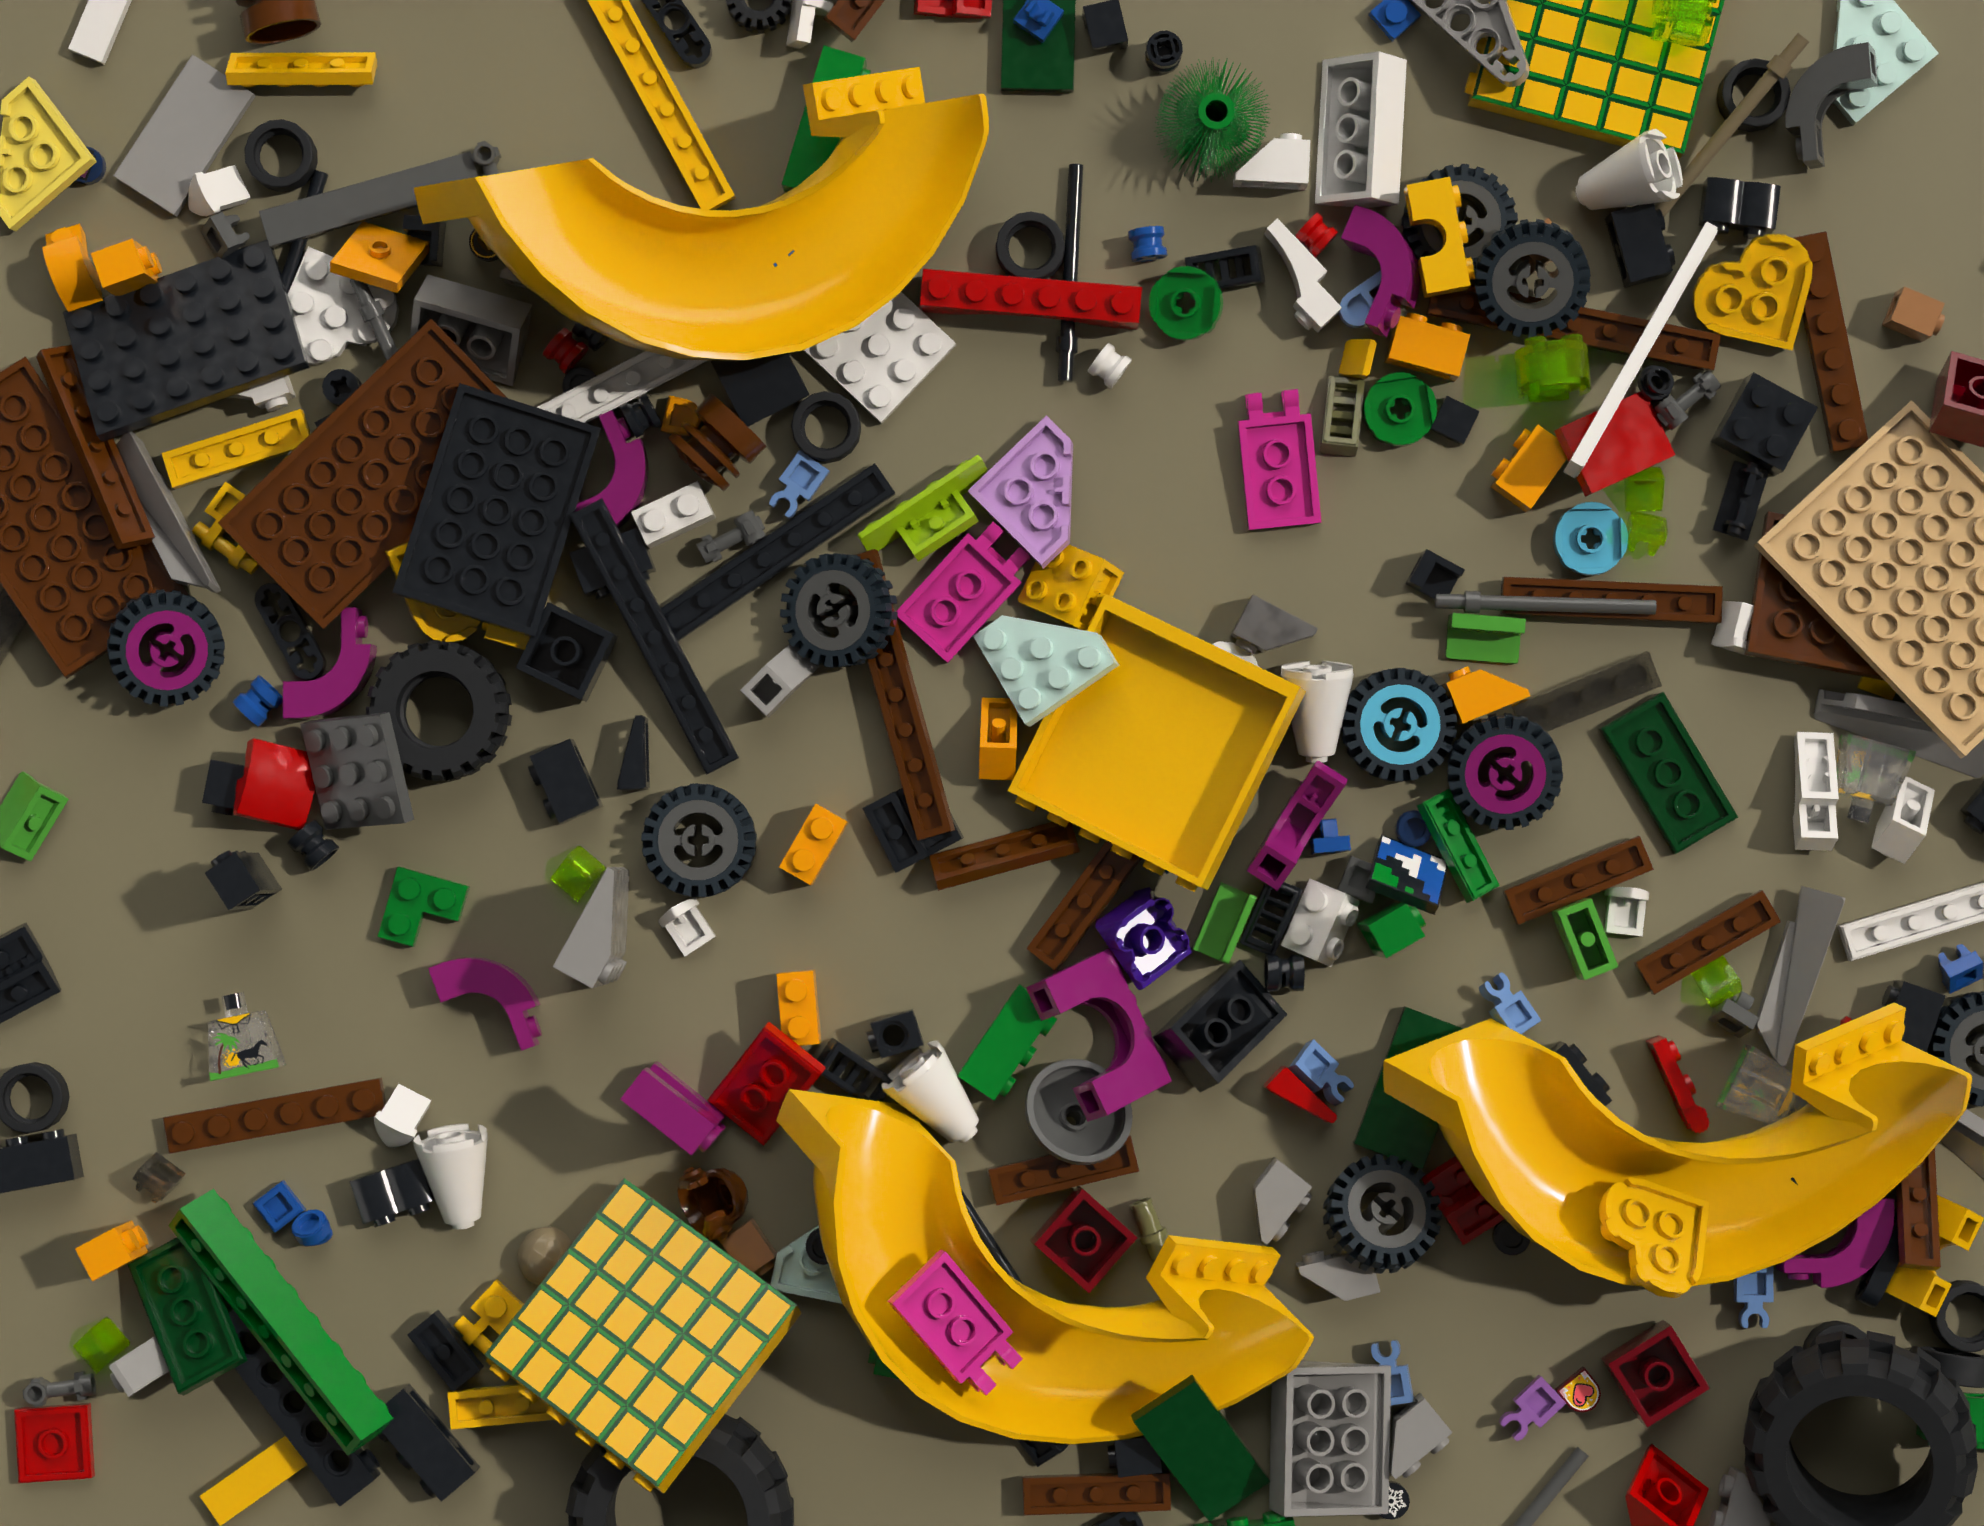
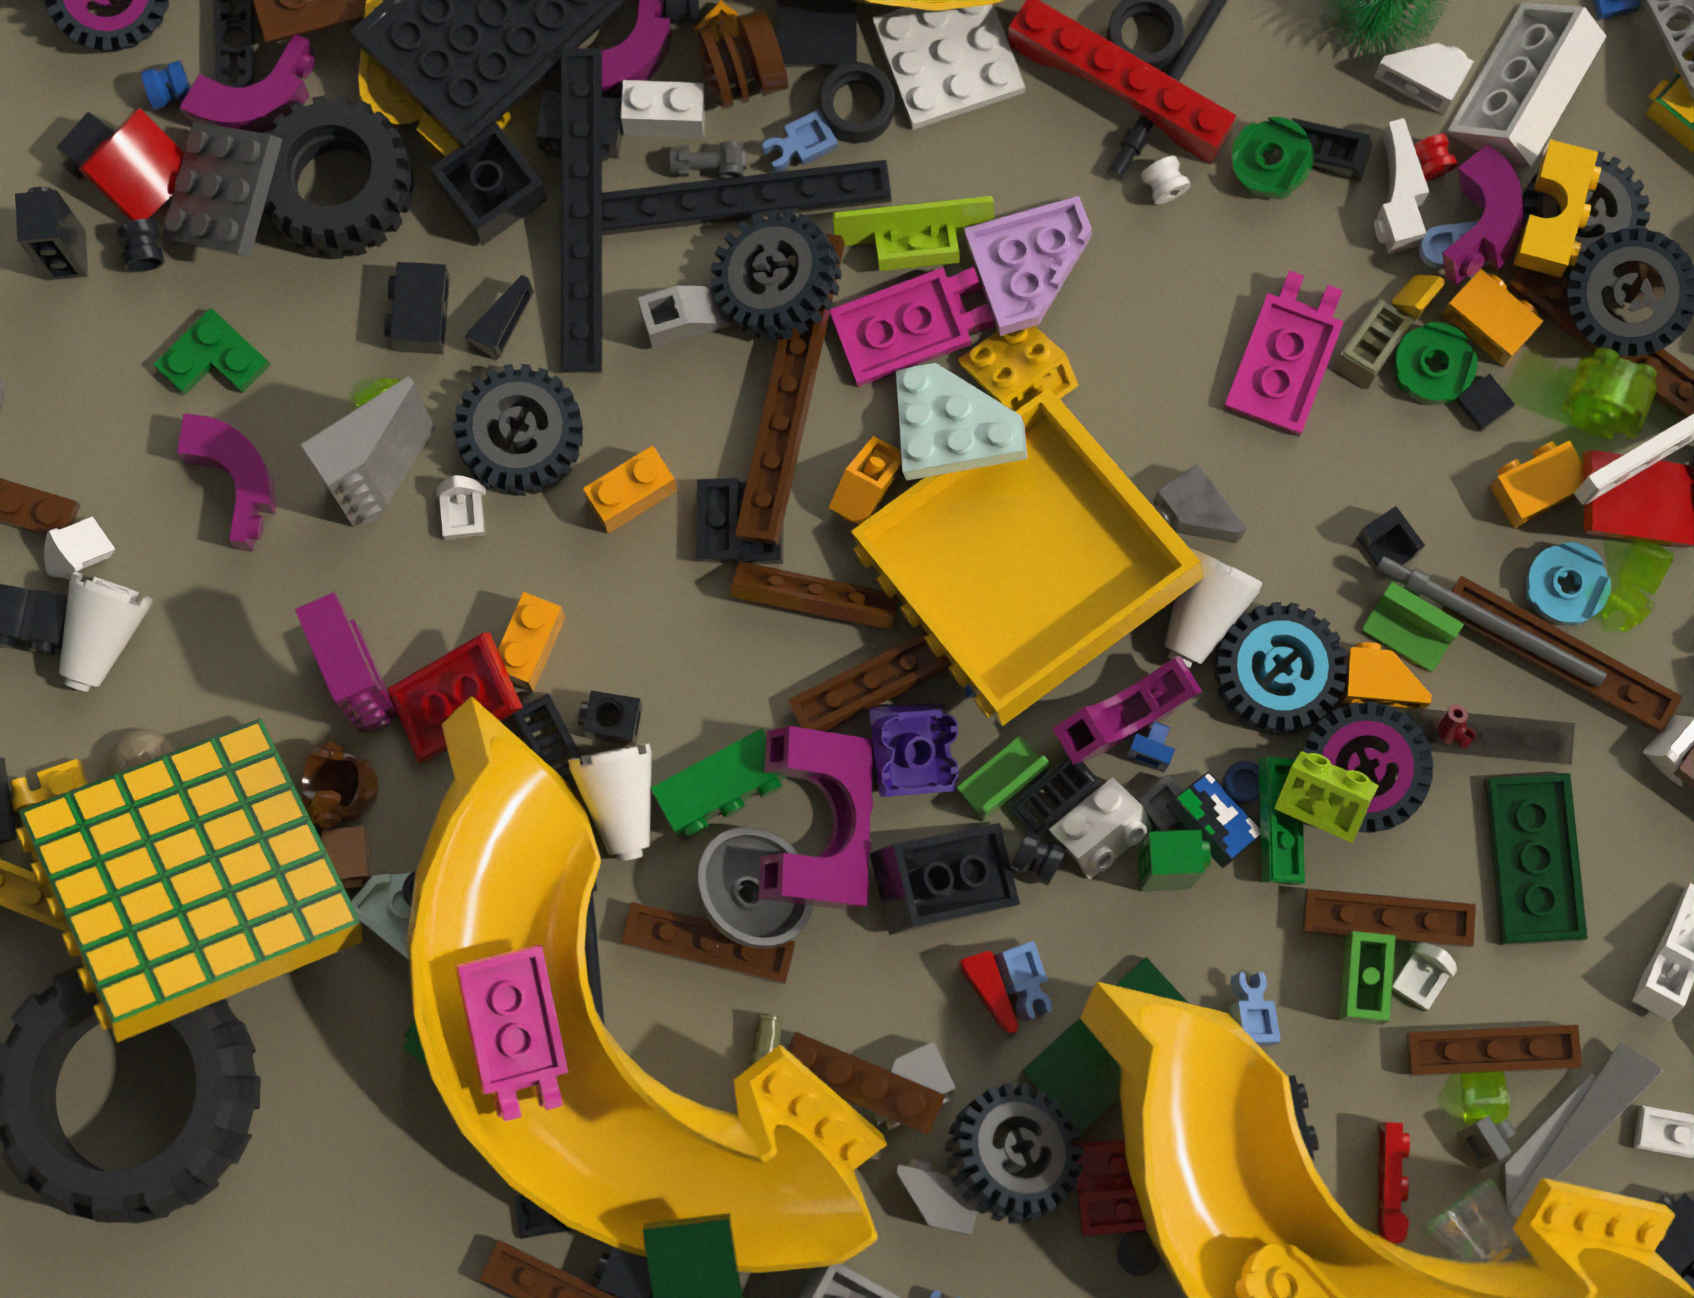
camera: 25 degrees right, 10 degrees down
(1083, 1239) = (691, 1020): dark red brick -> none
(1147, 244) = (1262, 85): blue wheel -> none
(1239, 1220) = (869, 1084): none -> reddish brown plate
(1486, 814) = (1326, 795): none -> lime bracket
(1560, 707) = (1454, 729): none -> dark red arm

